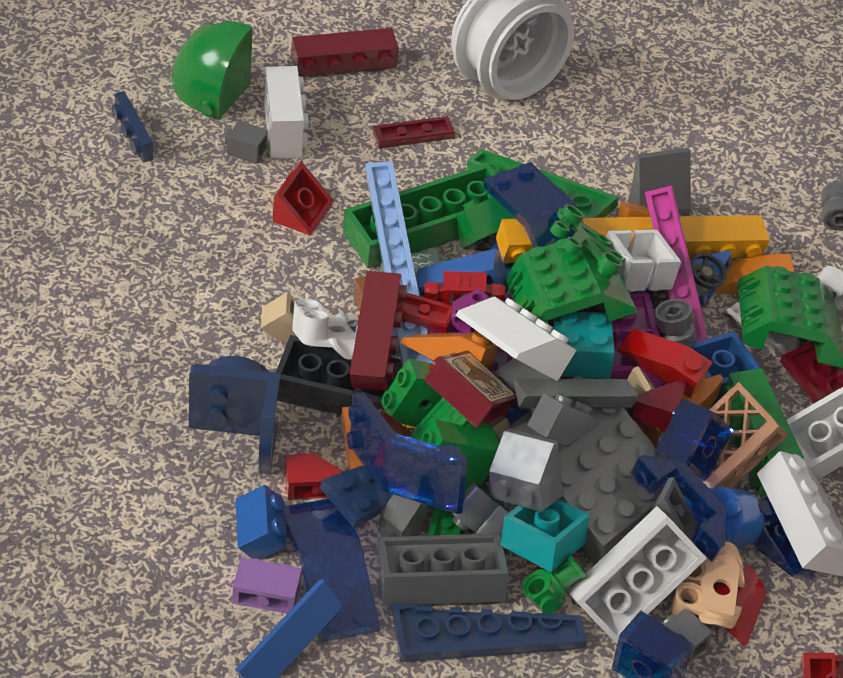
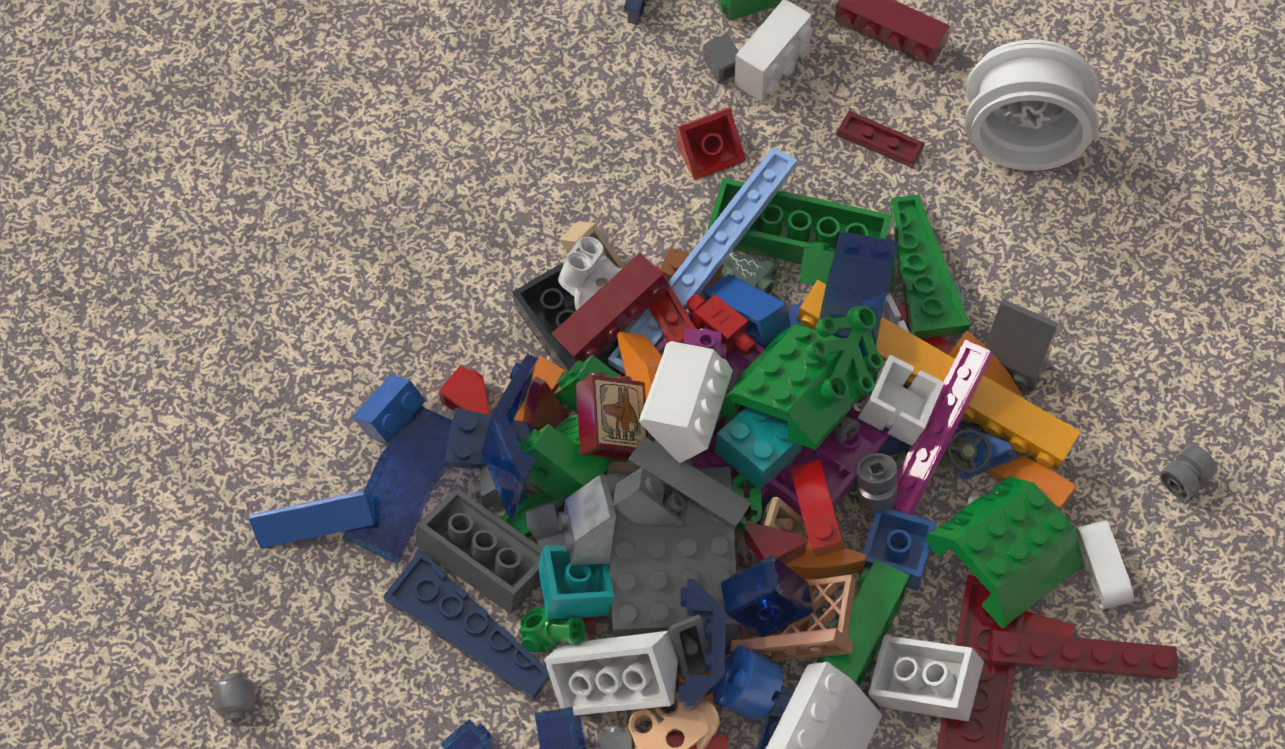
camera: 50 degrees right, 15 degrees up
(237, 398) = (471, 293): dark blue piece -> none
(266, 585) = (345, 461): medium lavender brick -> none

